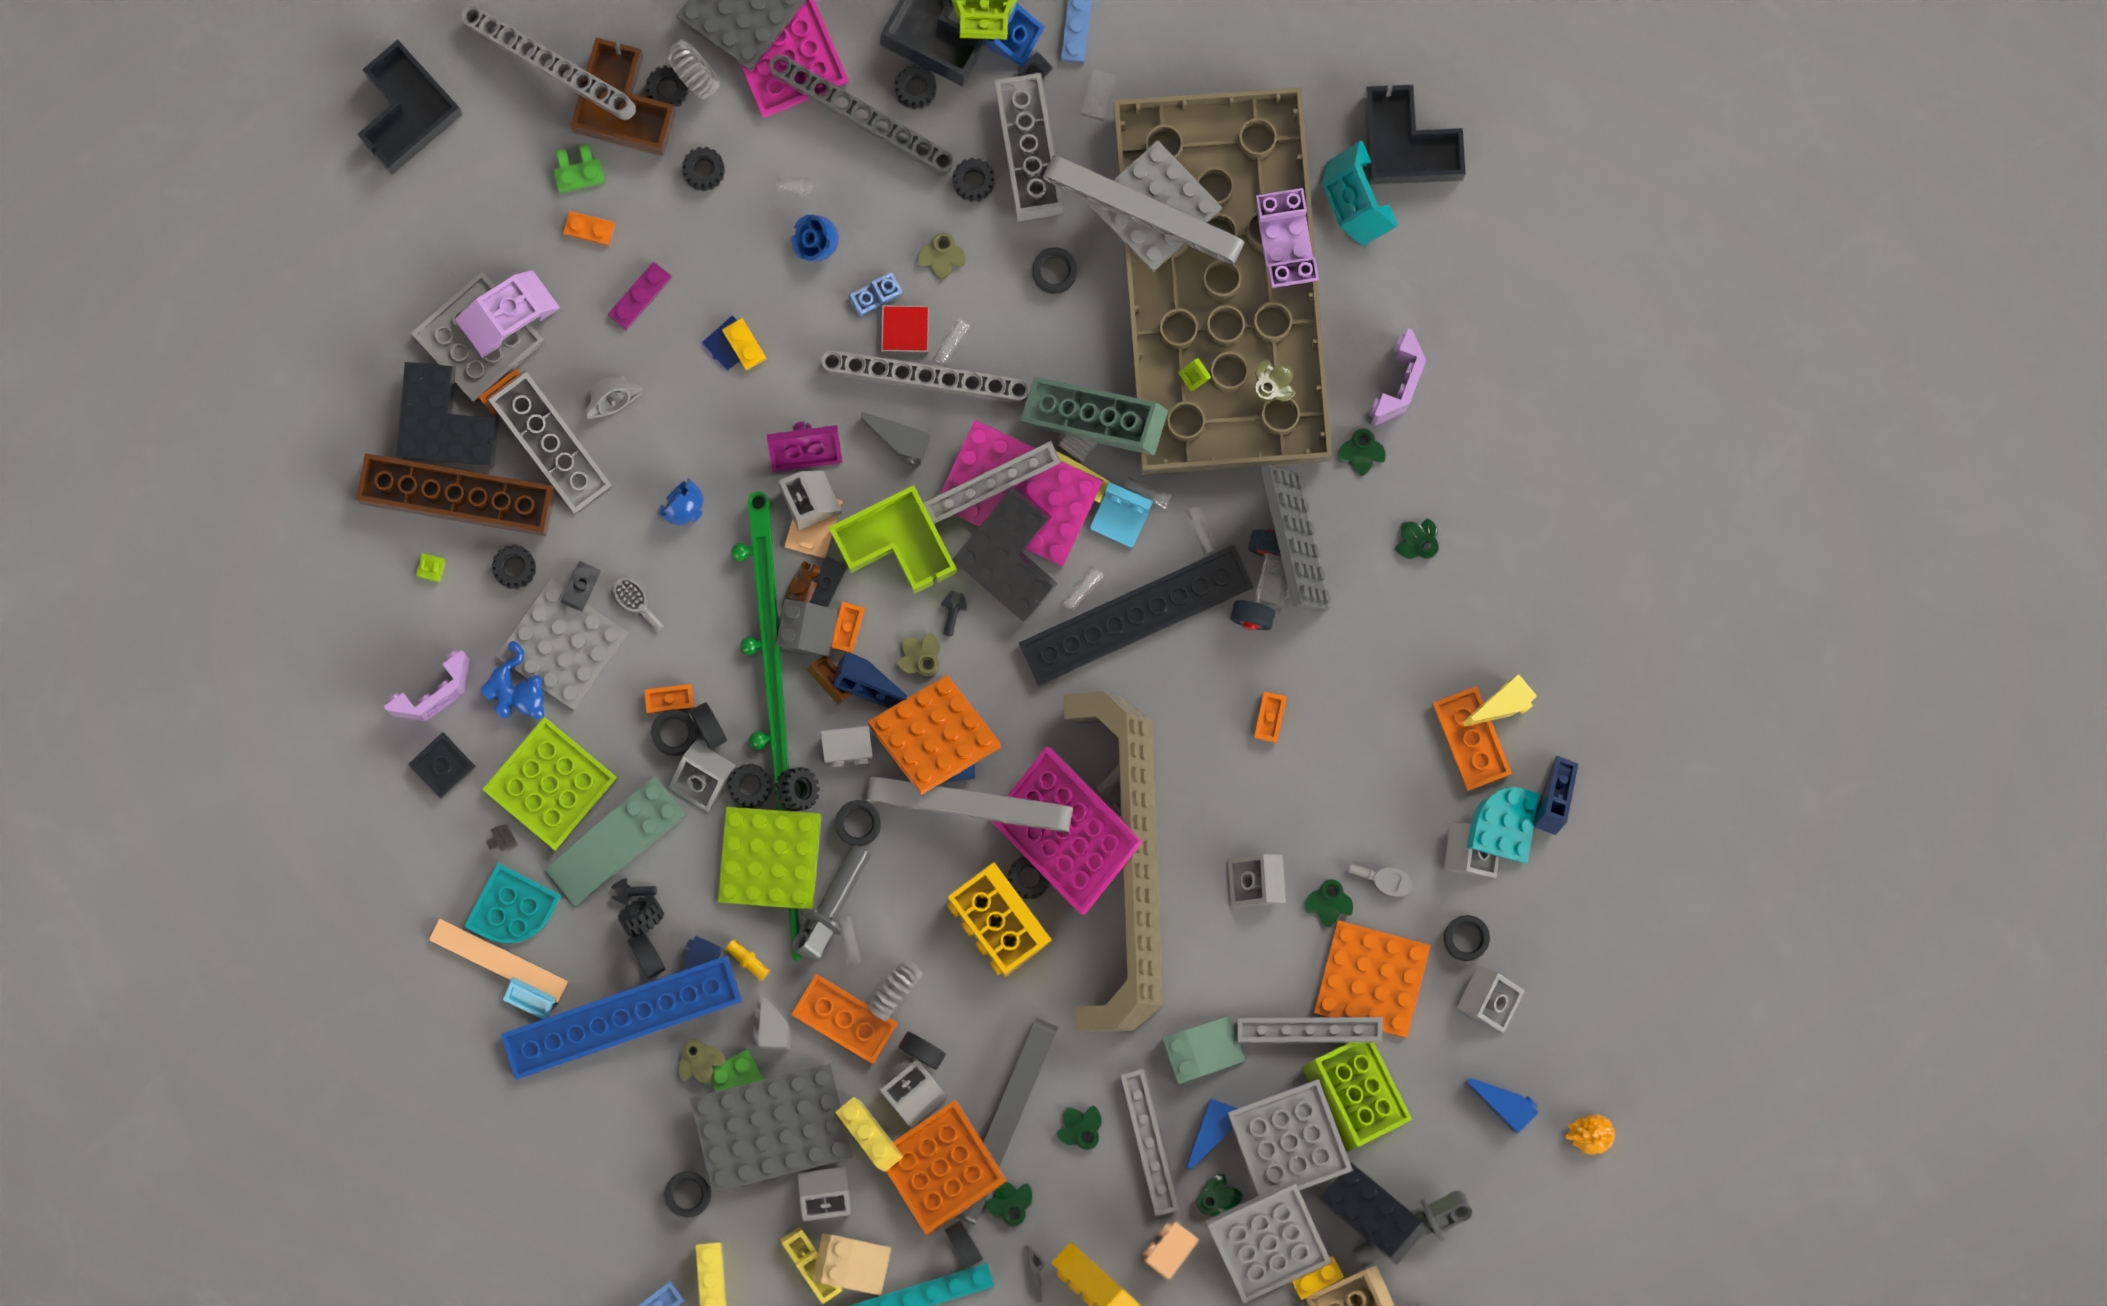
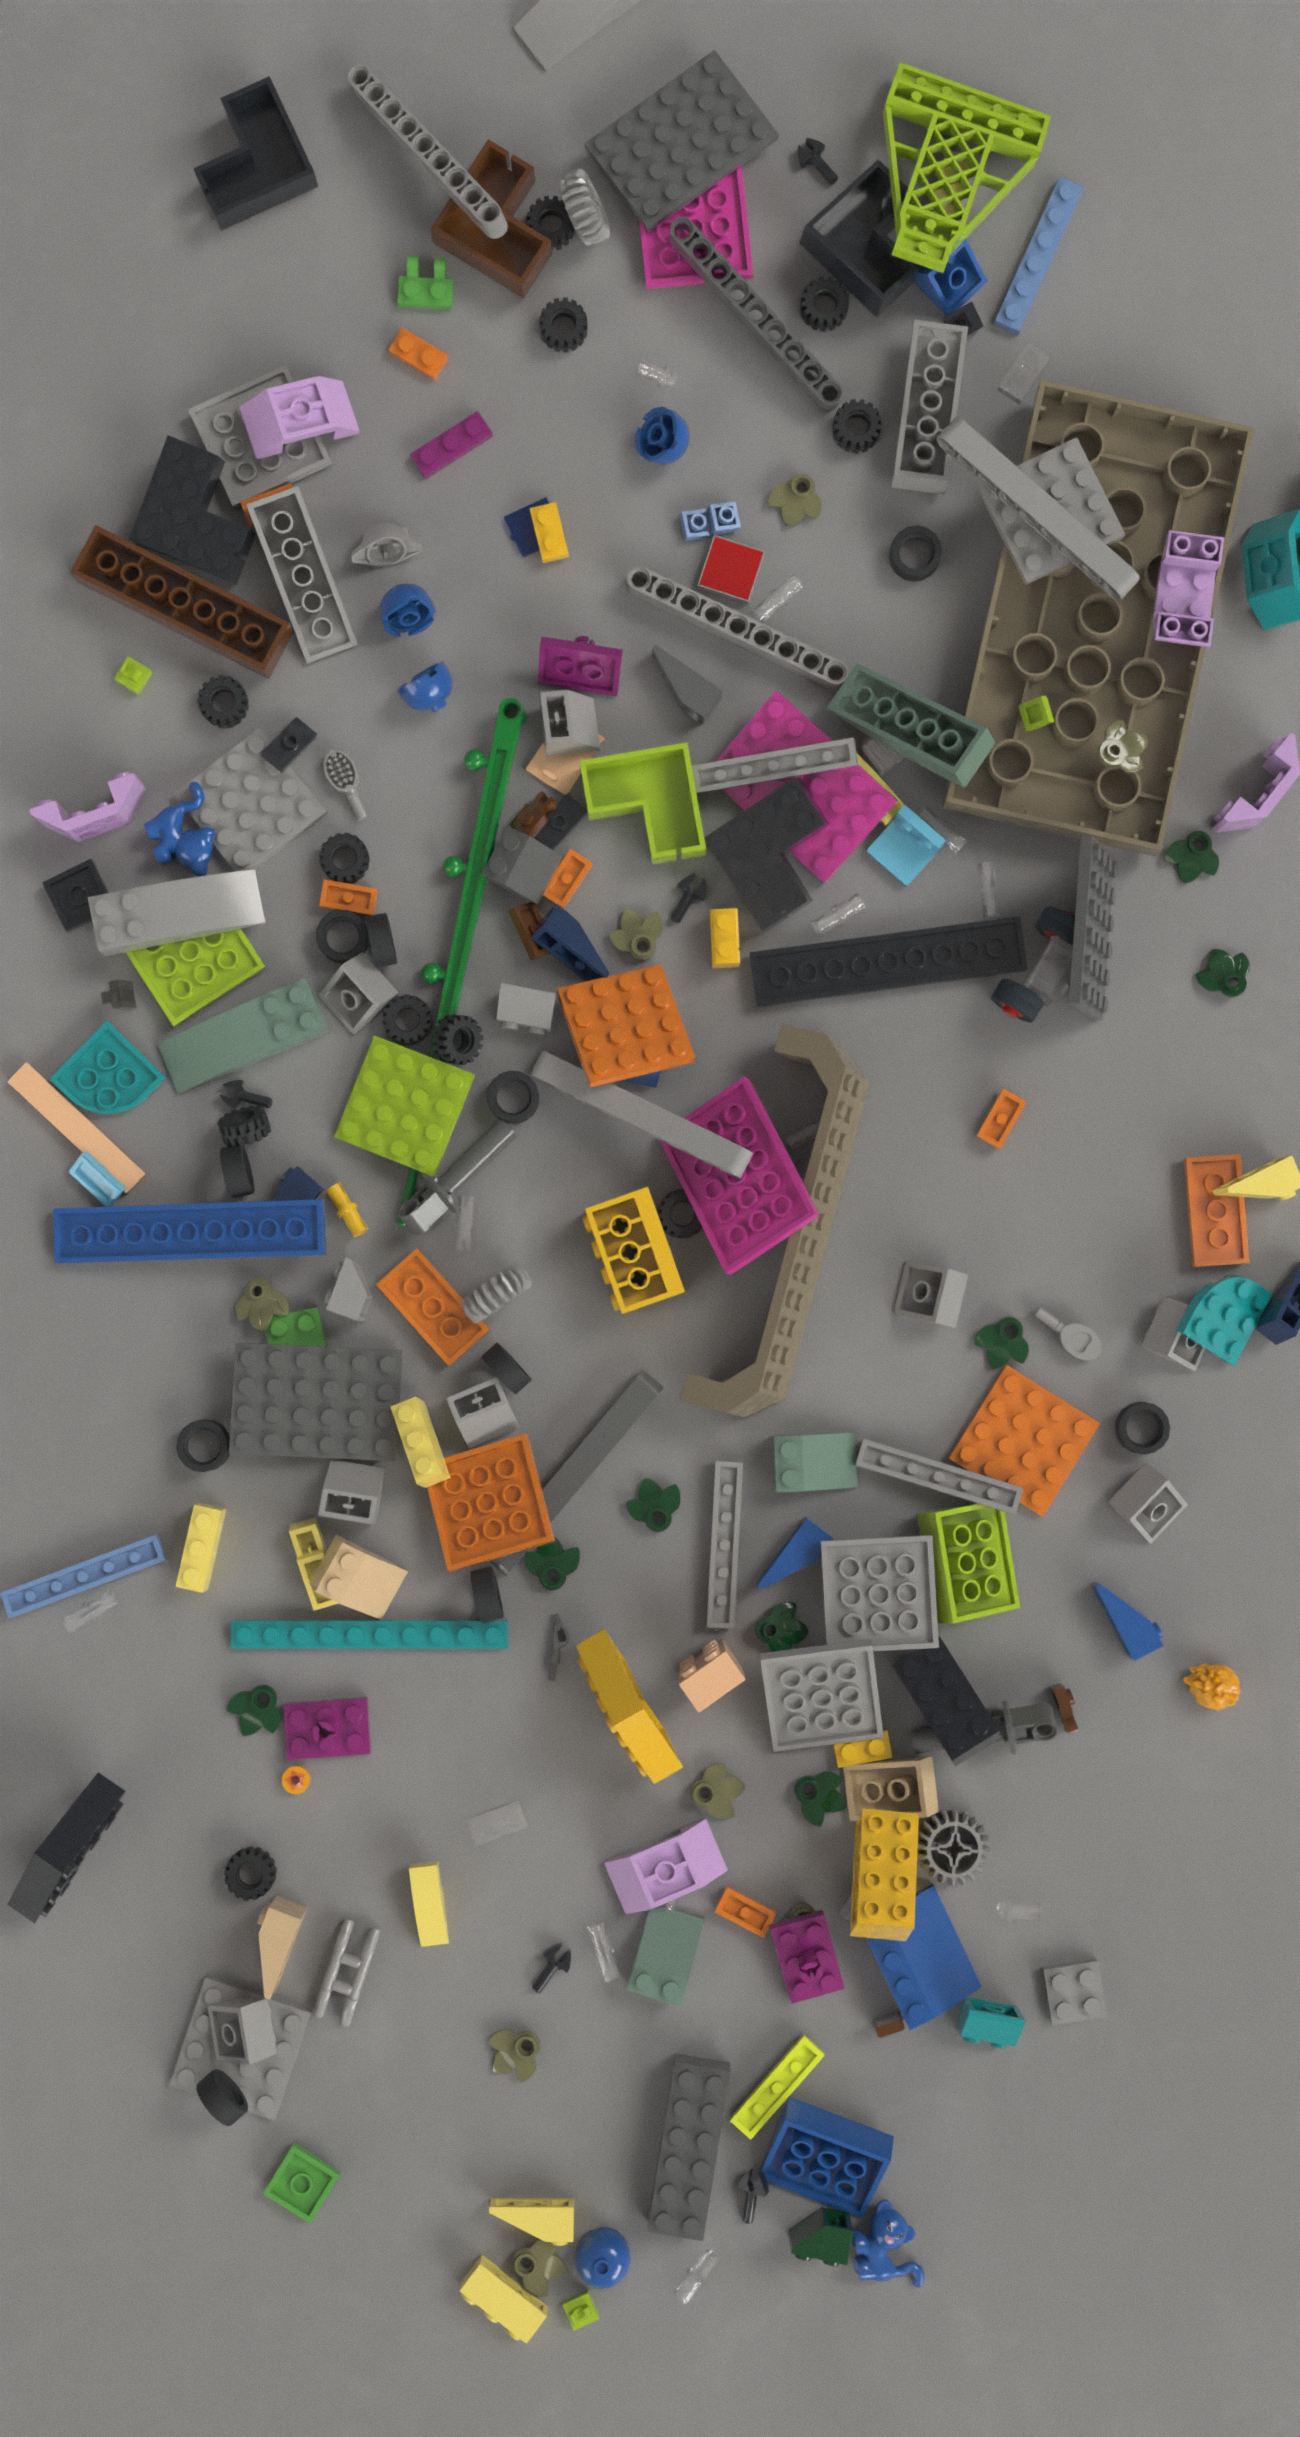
camera: 20 degrees right, 5 degrees up
(530, 753) = (175, 911): none -> light grey slope
(644, 444) = (406, 609): none -> blue cylinder
(649, 653) = (344, 841): none -> black tyre
(994, 637) = (724, 938): none -> yellow brick
(1472, 1185) = (1063, 1700): none -> reddish brown plate

